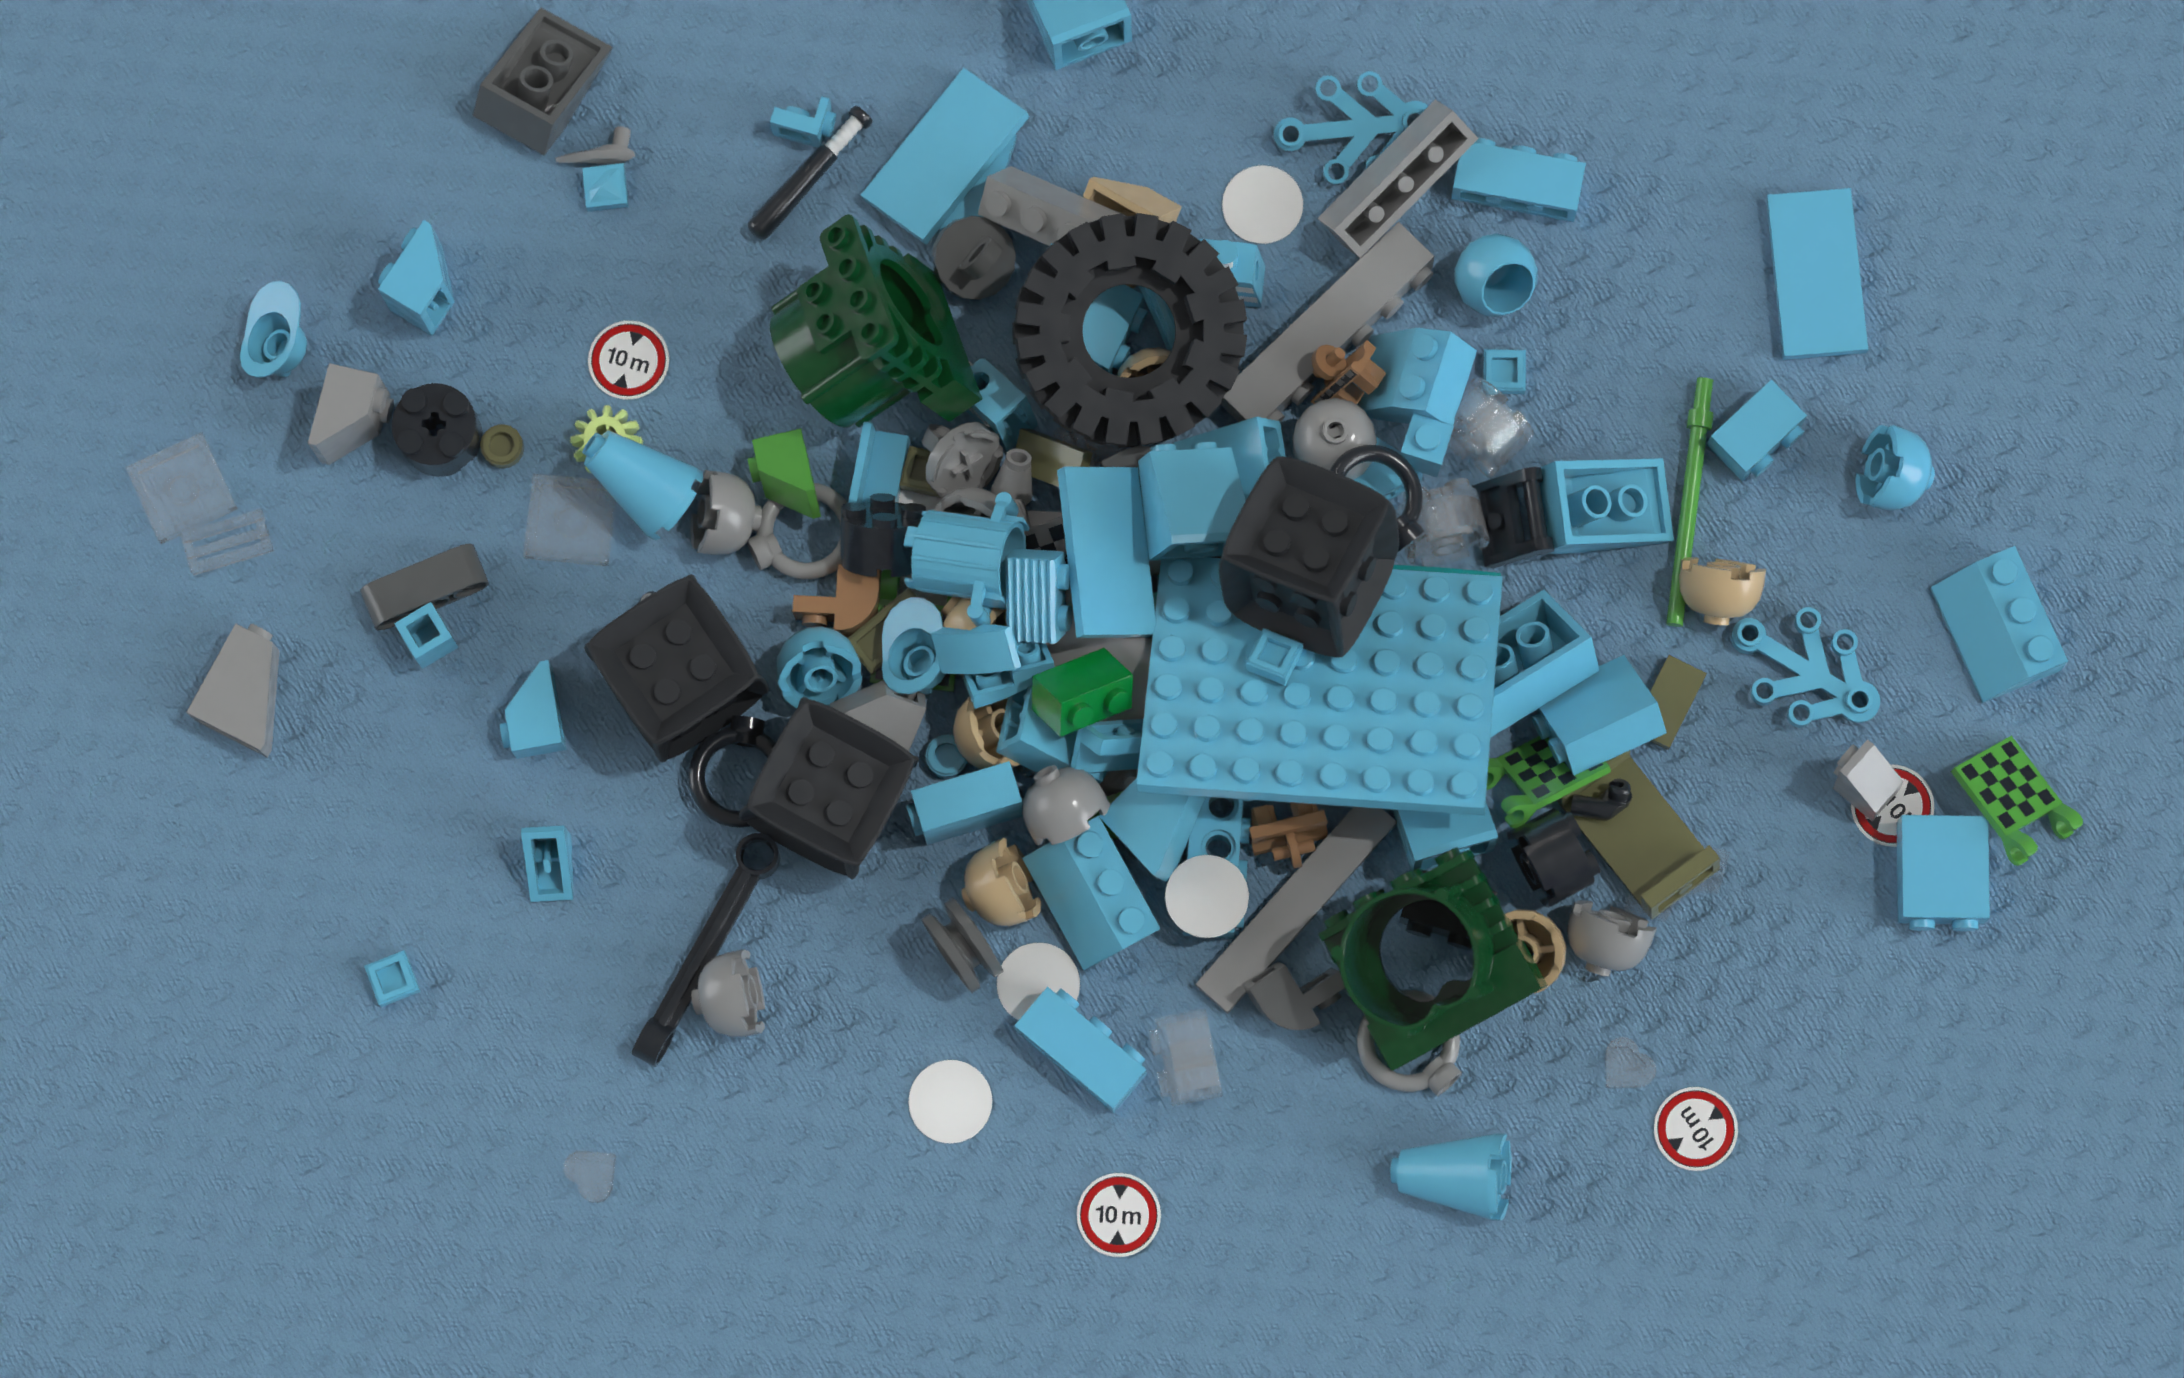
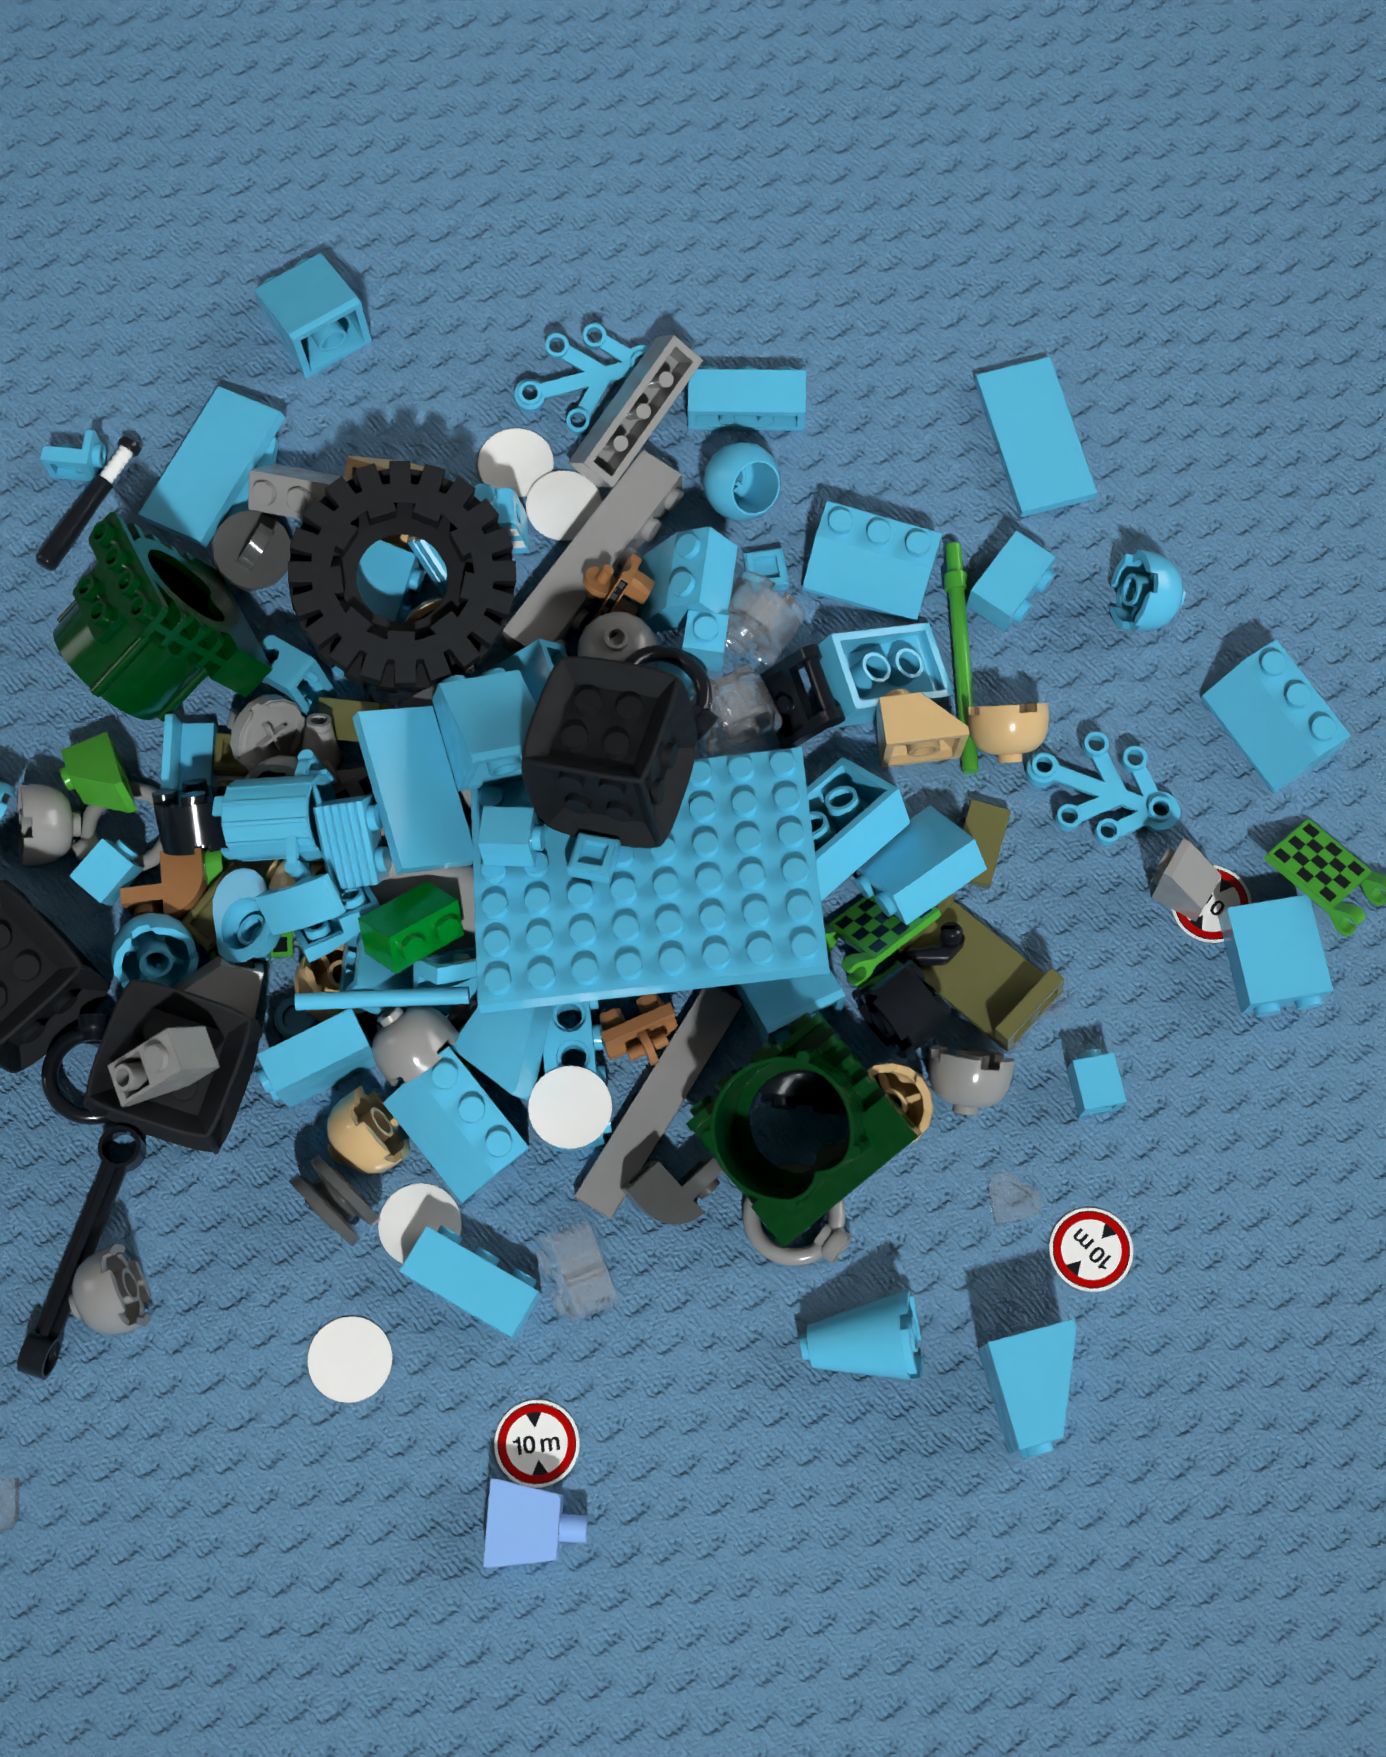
camera: 15 degrees left, 5 degrees down
(784, 574) = (107, 870): none -> medium azure brick
(827, 789) = (163, 1064): none -> light grey slope
(1042, 757) = (382, 998): none -> medium azure bar
(1098, 1288) = (527, 1525): none -> light blue torso
(1195, 620) = (510, 836): none -> medium azure brick
(1304, 261) = (561, 504): none -> white sticker
(1605, 1244) = (1031, 1385): none -> medium azure slope
(1615, 384) = (871, 561): none -> medium azure slope
(1623, 575) = (916, 730): none -> tan slope
(1733, 966) = (1096, 1083): none -> medium azure brick

